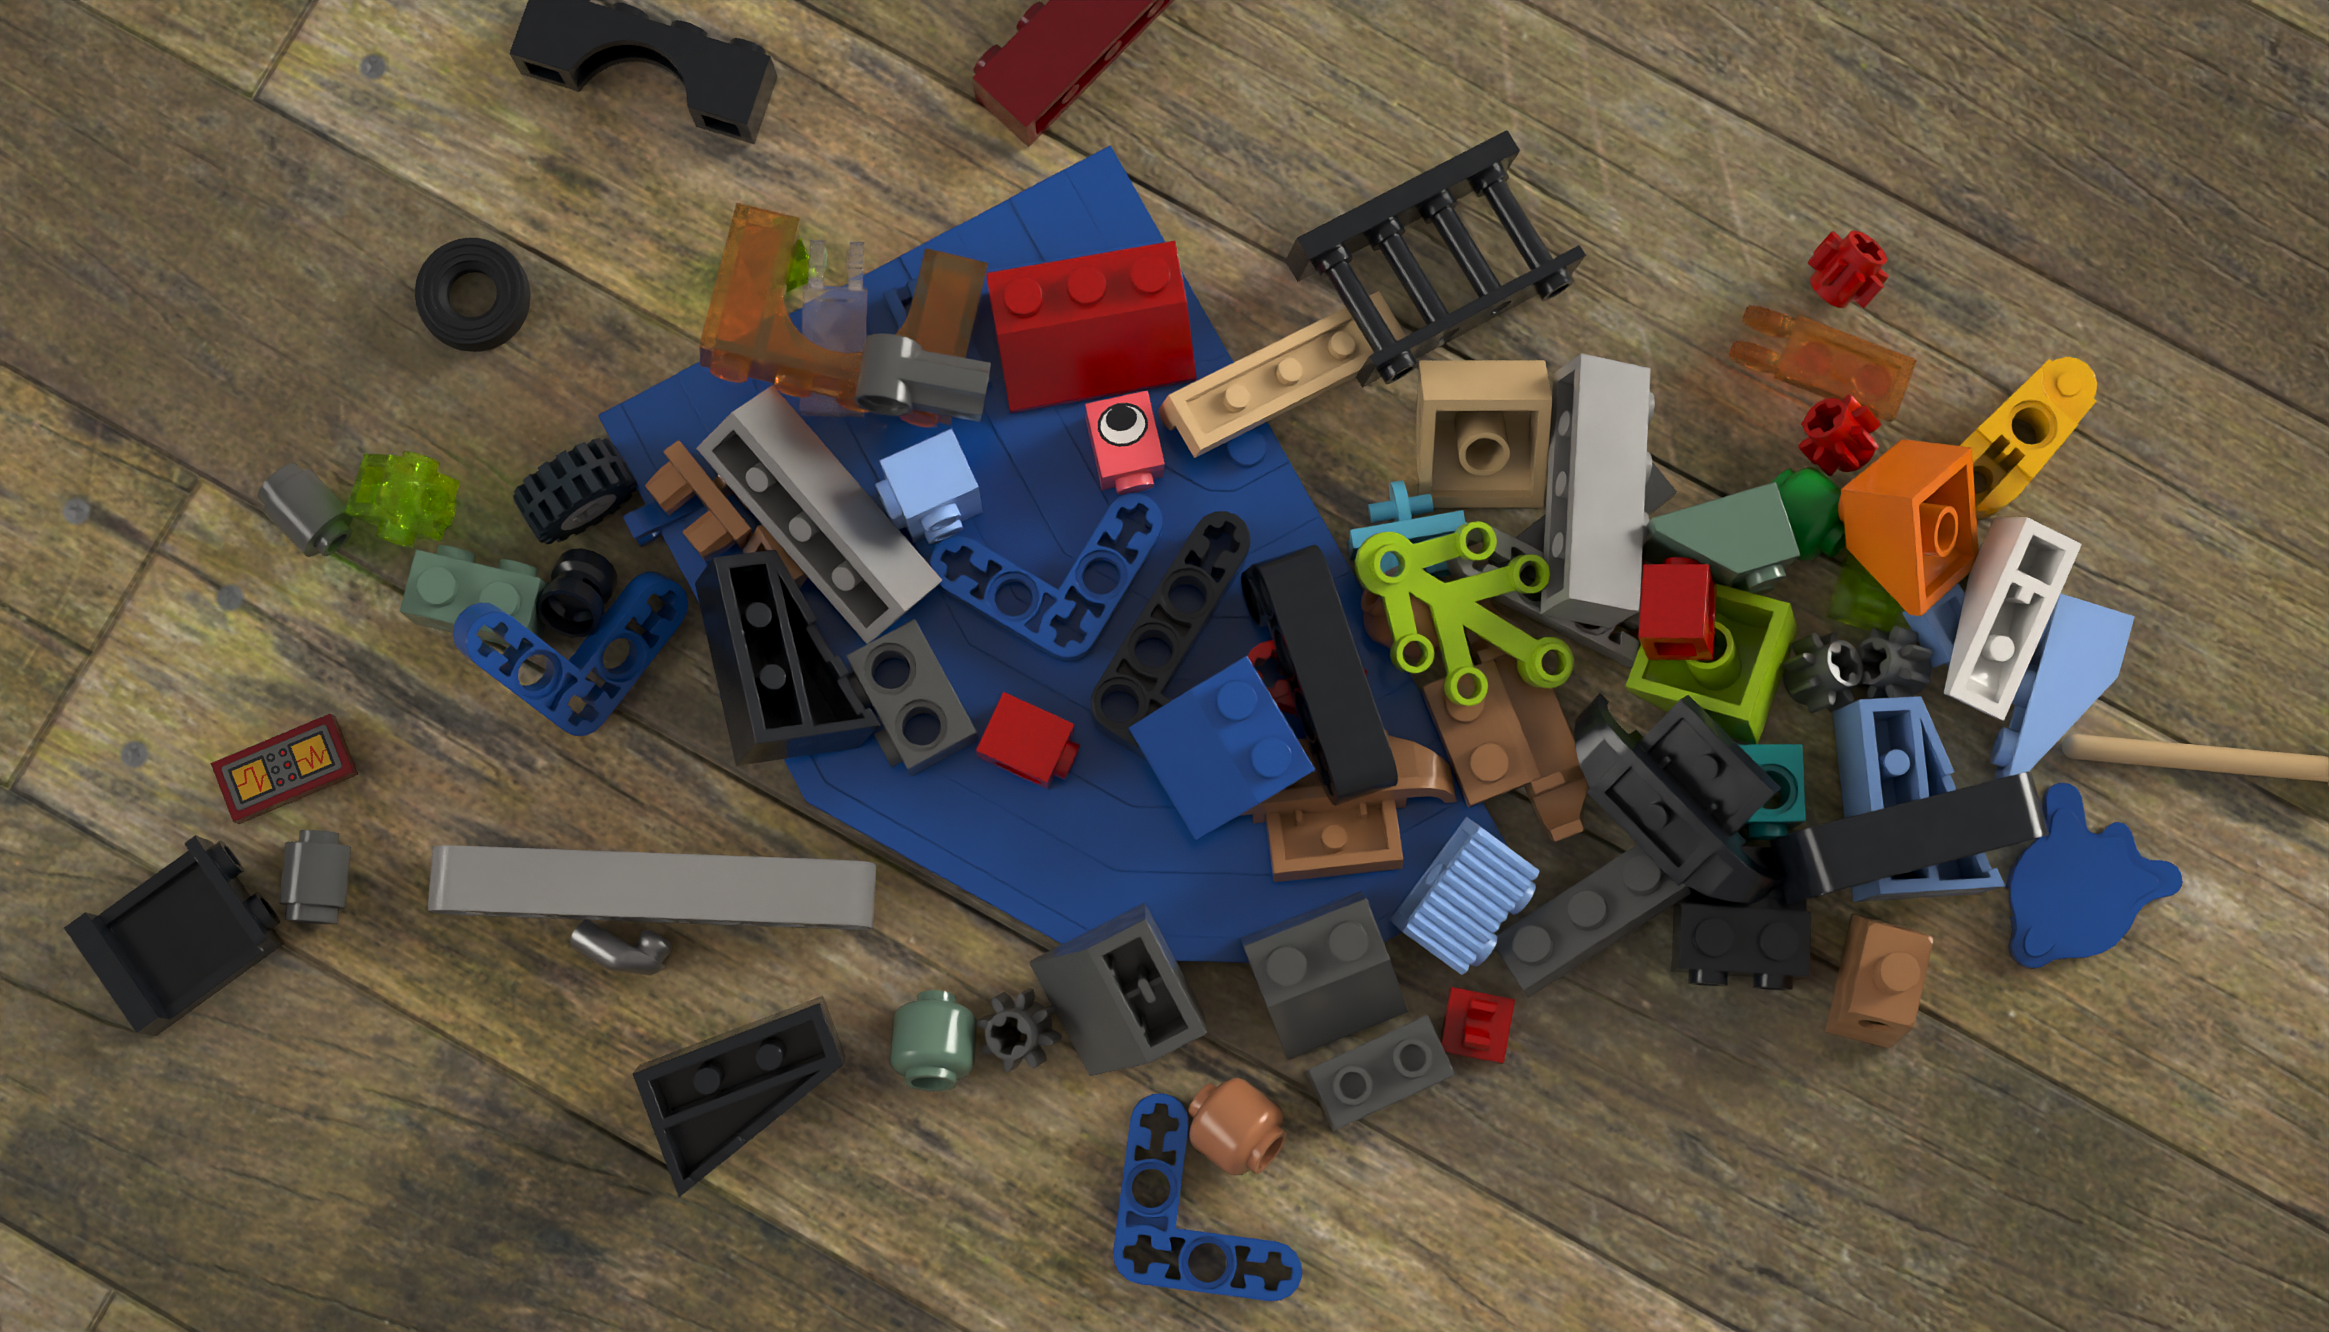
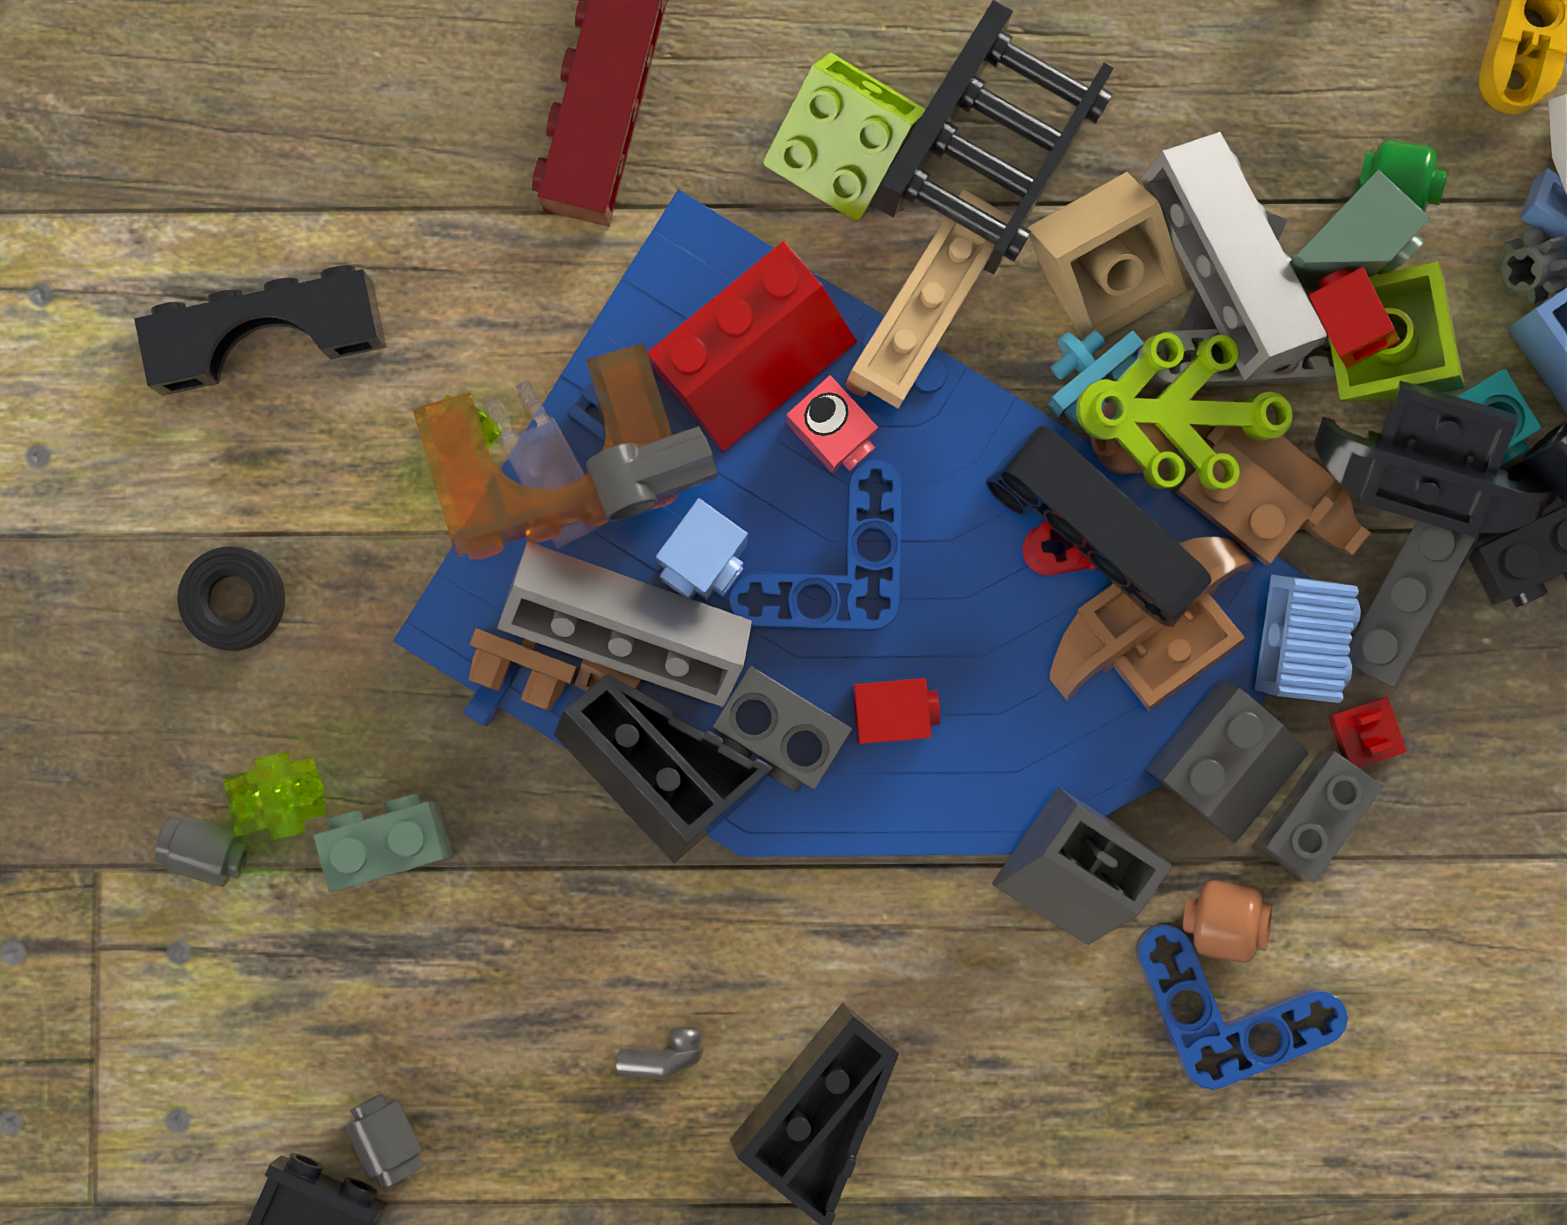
camera: 25 degrees left, 5 degrees up
(284, 769) = (306, 1066): tile -> none
(568, 677) = (496, 865): blue beam -> none
(575, 490) = (411, 713): black wheel -> none
(577, 593) = (462, 785): black wheel -> none
(652, 887) = (658, 995): light grey beam -> none
(933, 1041) = (952, 990): sand green head -> none
(1005, 1039) = (1002, 950): dark grey gear -> none
(1175, 628) = (967, 558): black beam -> none
(1221, 748) = (1059, 632): blue slope -> none
(1293, 176) = (842, 135): none -> lime bracket
(1822, 672) = (1485, 301): dark grey gear -> none
(1827, 361) = (1348, 48): clear orange hinge -> none
(1839, 435) = (1392, 102): red gear -> none
(1862, 599) = (1480, 218): clear neon green tile -> none
(1914, 521) = (1491, 138): orange slope -> none

